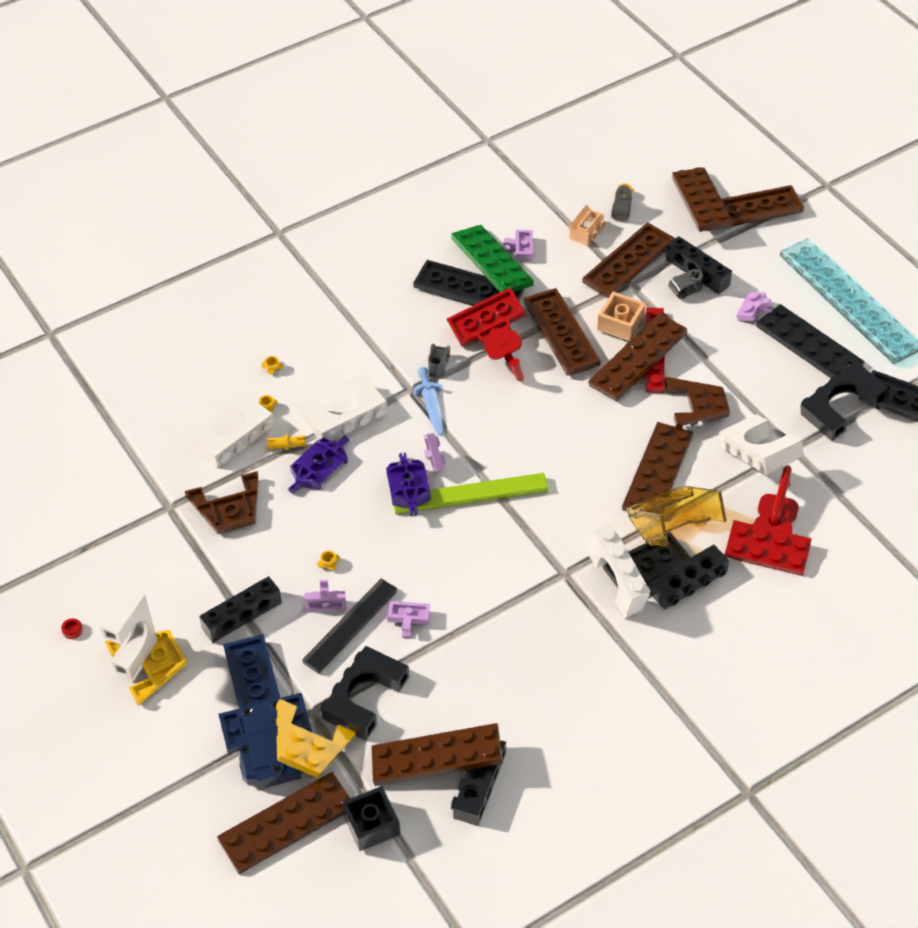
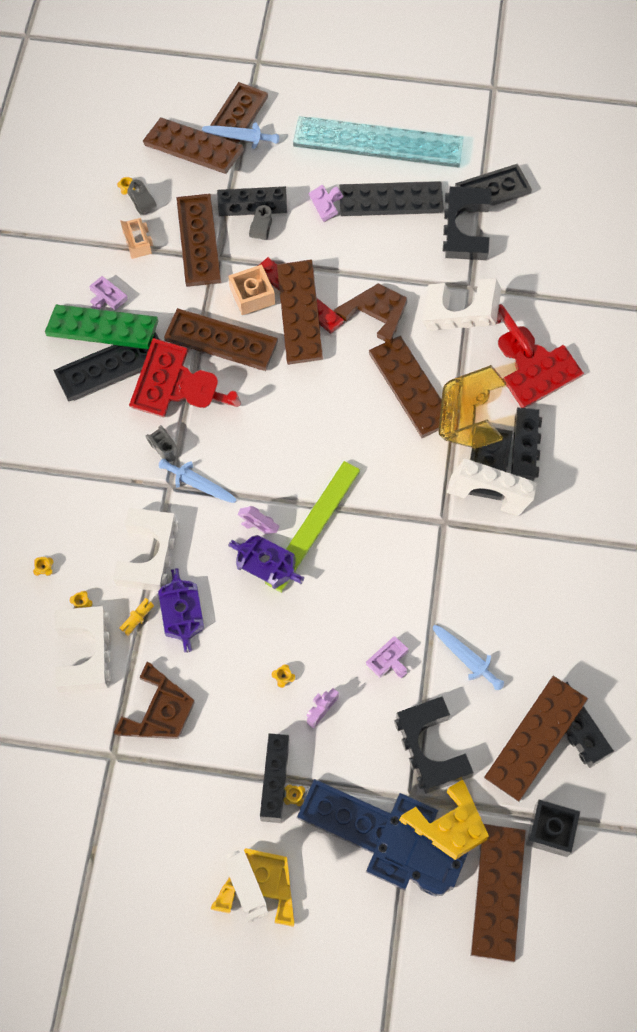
camera: 50 degrees left, 15 degrees up
(71, 628) = (168, 925): red tile -> none
(238, 629) = (290, 790): none -> yellow plate
(349, 626) = (359, 708): black tile -> none
(463, 670) = (469, 658): none -> light blue sword
(748, 218) = (245, 134): none -> light blue sword

